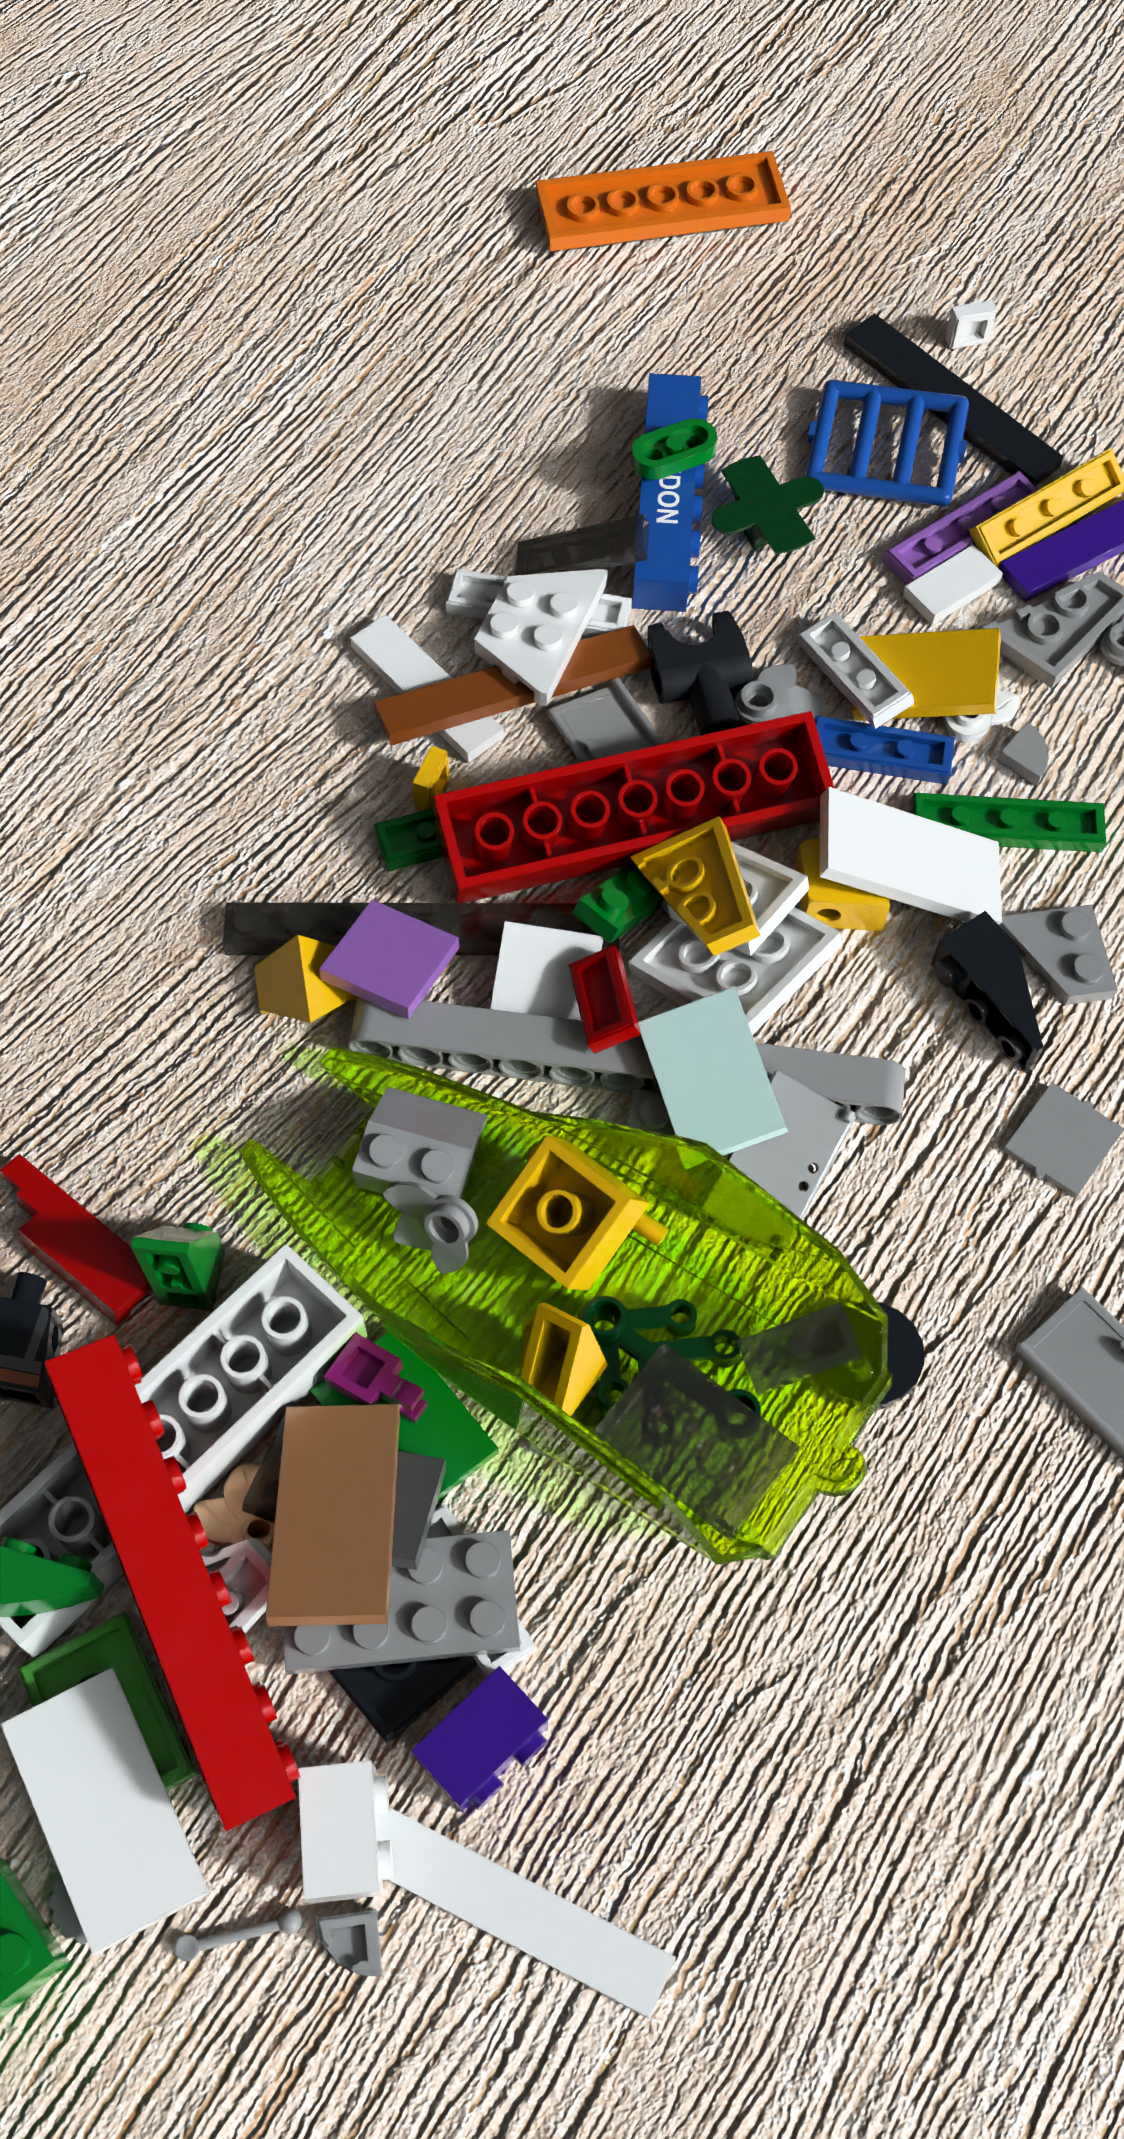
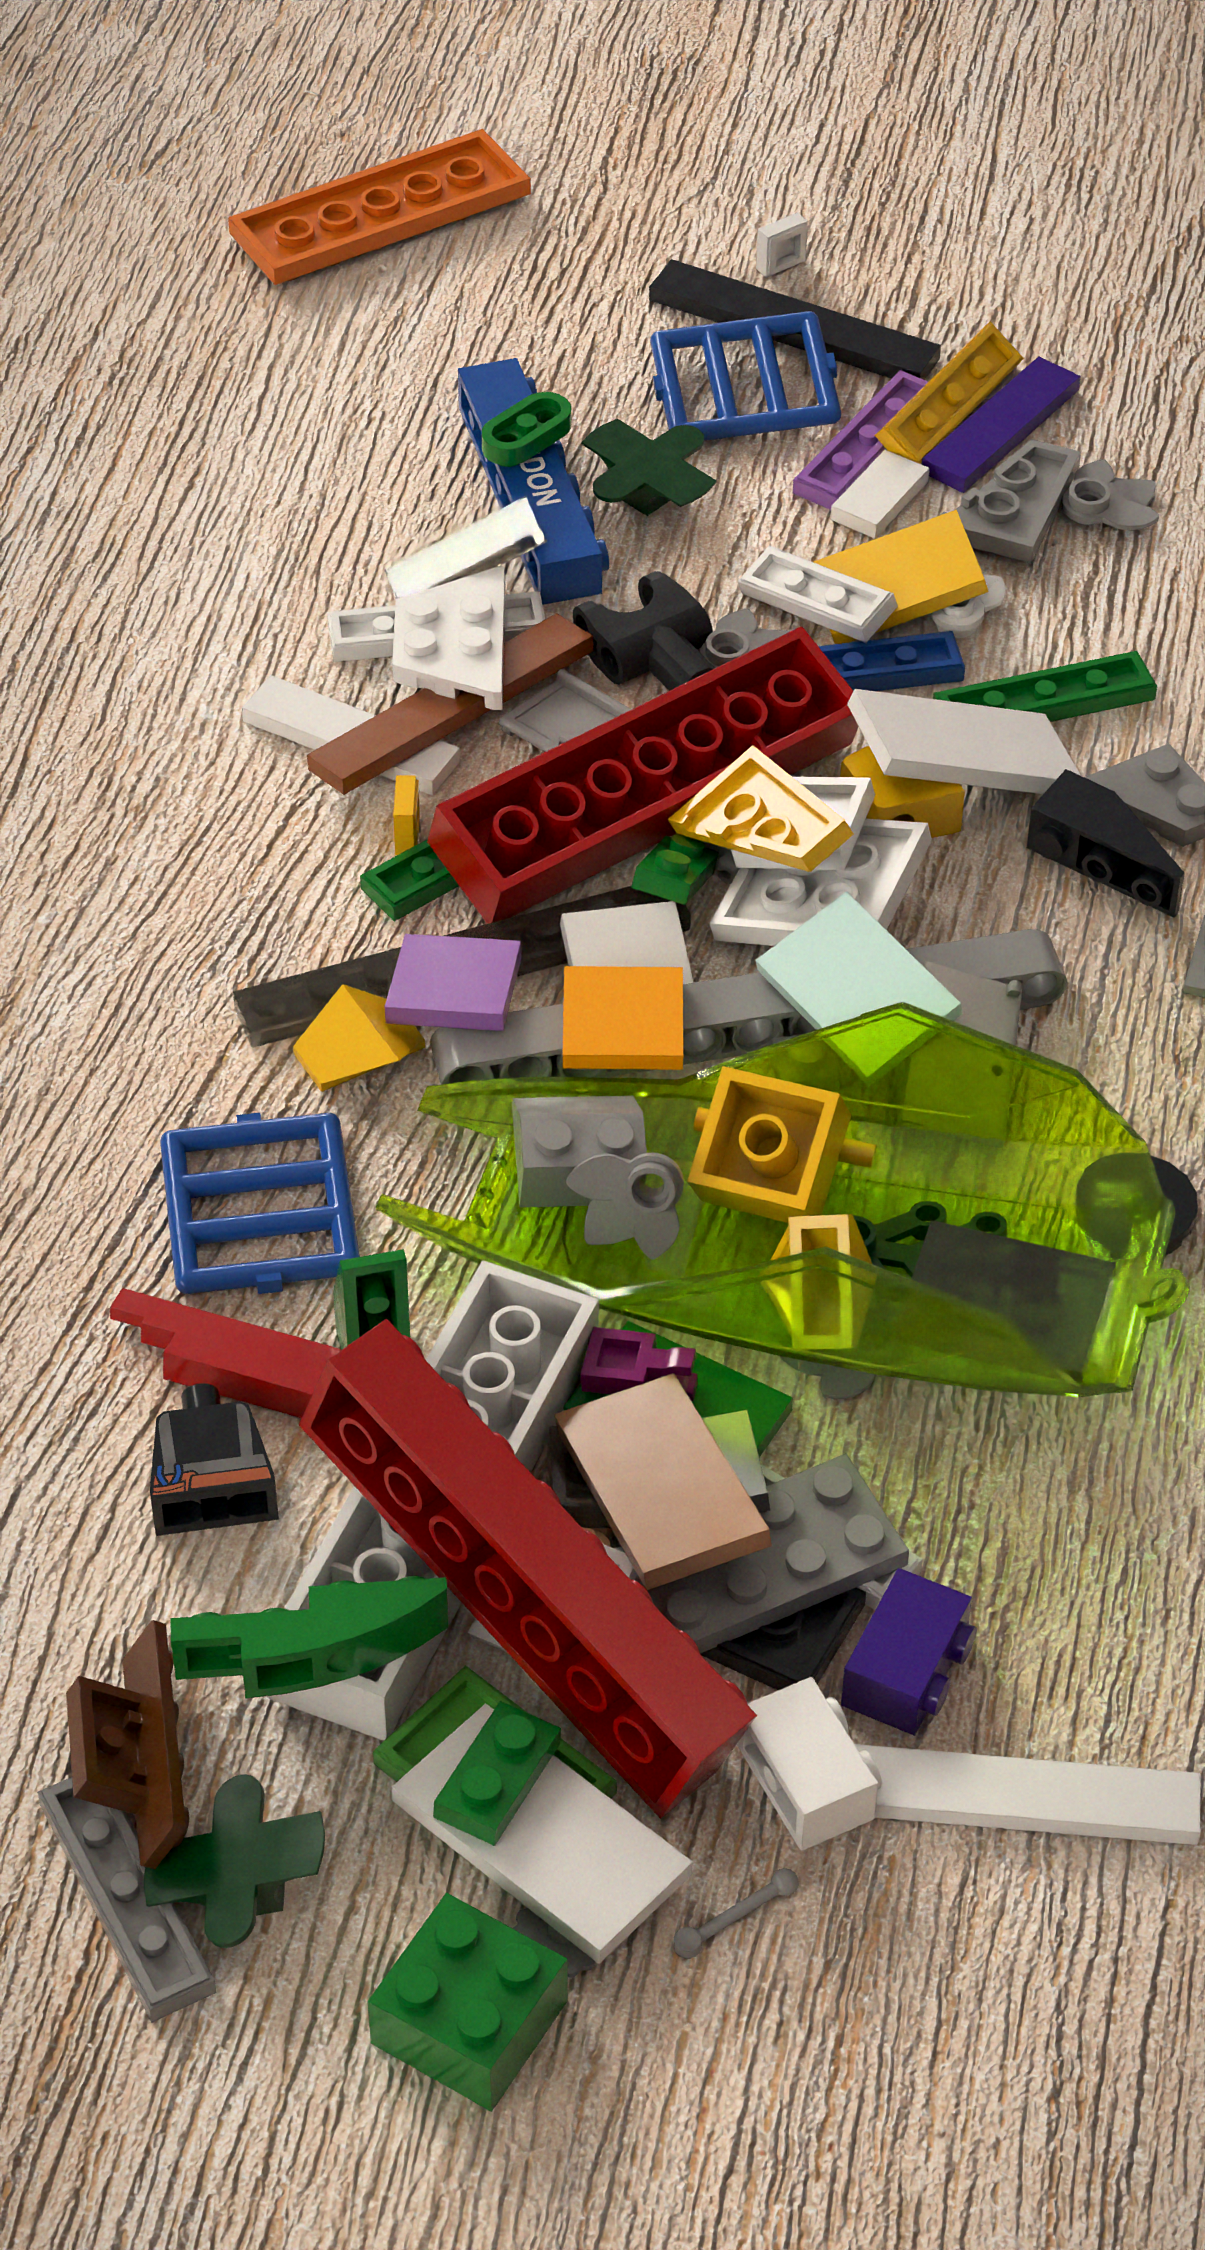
camera: 20 degrees left, 15 degrees down
(84, 1747) = (497, 1773): none -> green plate
(216, 1140) = (251, 1130): none -> blue bar
(353, 1941) = (860, 1877): light grey tile -> none
(508, 1040) = (623, 1018): none -> light orange tile
(604, 999) = (708, 951): red tile -> none
(799, 1349) = (1069, 1196): clear smoke plate -> none
(1026, 754) = (1035, 629): light grey tile -> none

